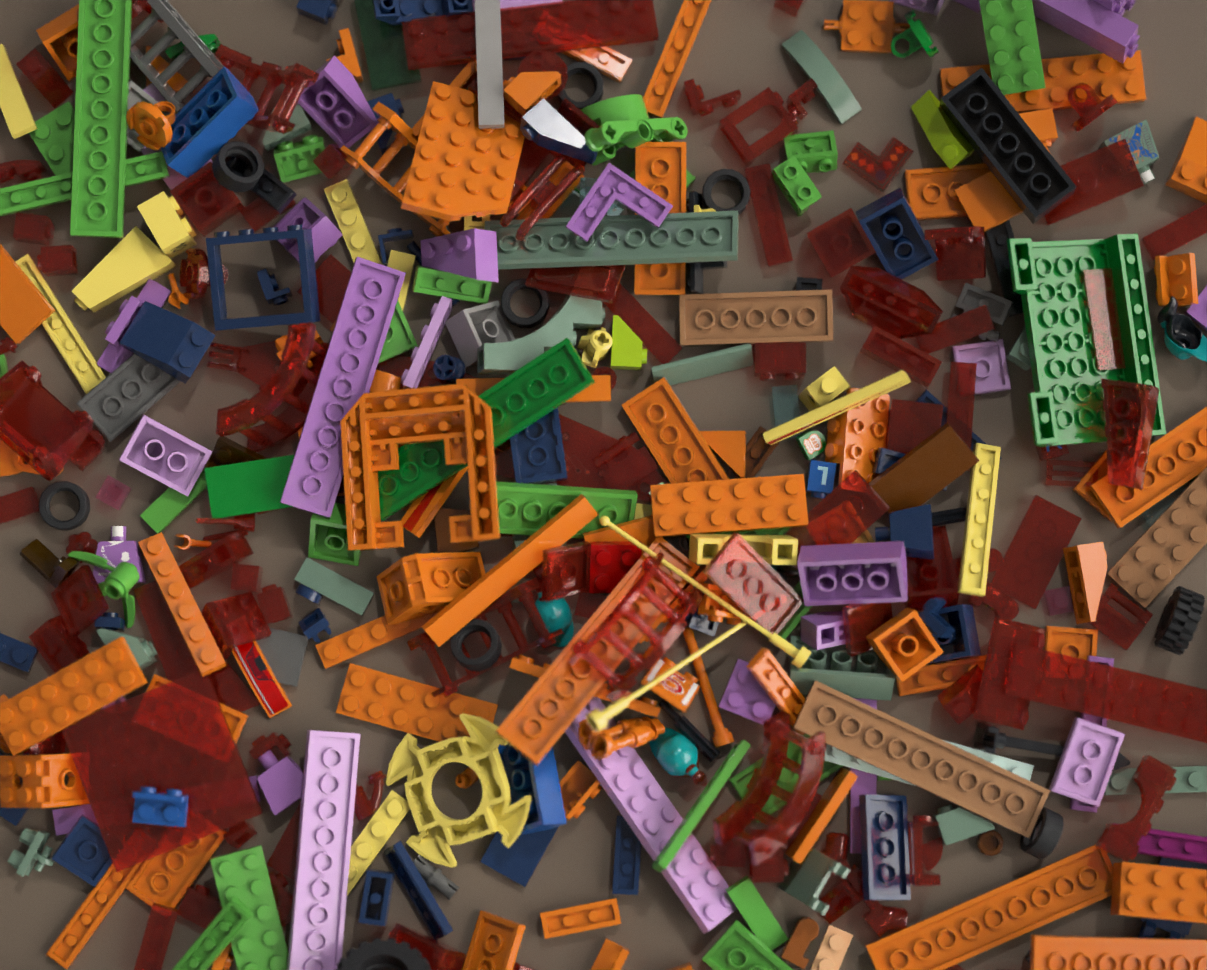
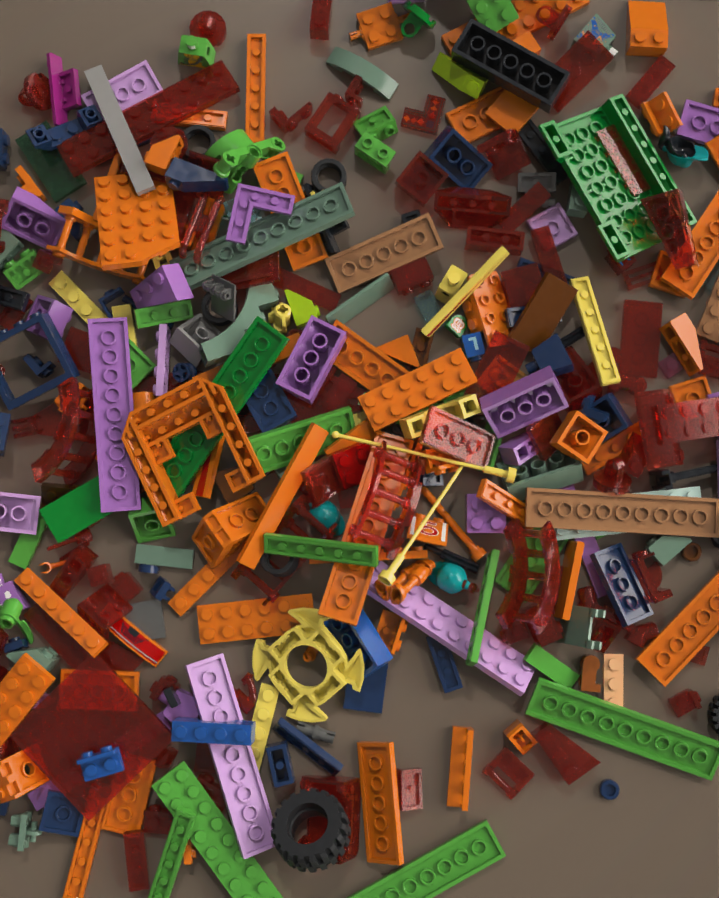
camera: 20 degrees left, 0 degrees up
(277, 761) = (172, 696): none -> black tile
(312, 824) = (199, 731): none -> blue arch
(530, 654) = (321, 549): none -> bright green tile
(533, 294) = (222, 296): none -> dark grey hinge
(580, 918) = (429, 719): orange plate -> none
(612, 416) = (311, 359): none -> medium lavender slope
(768, 215) = (364, 180): clear red plate -> none
(926, 712) = (612, 479): none -> clear red tile

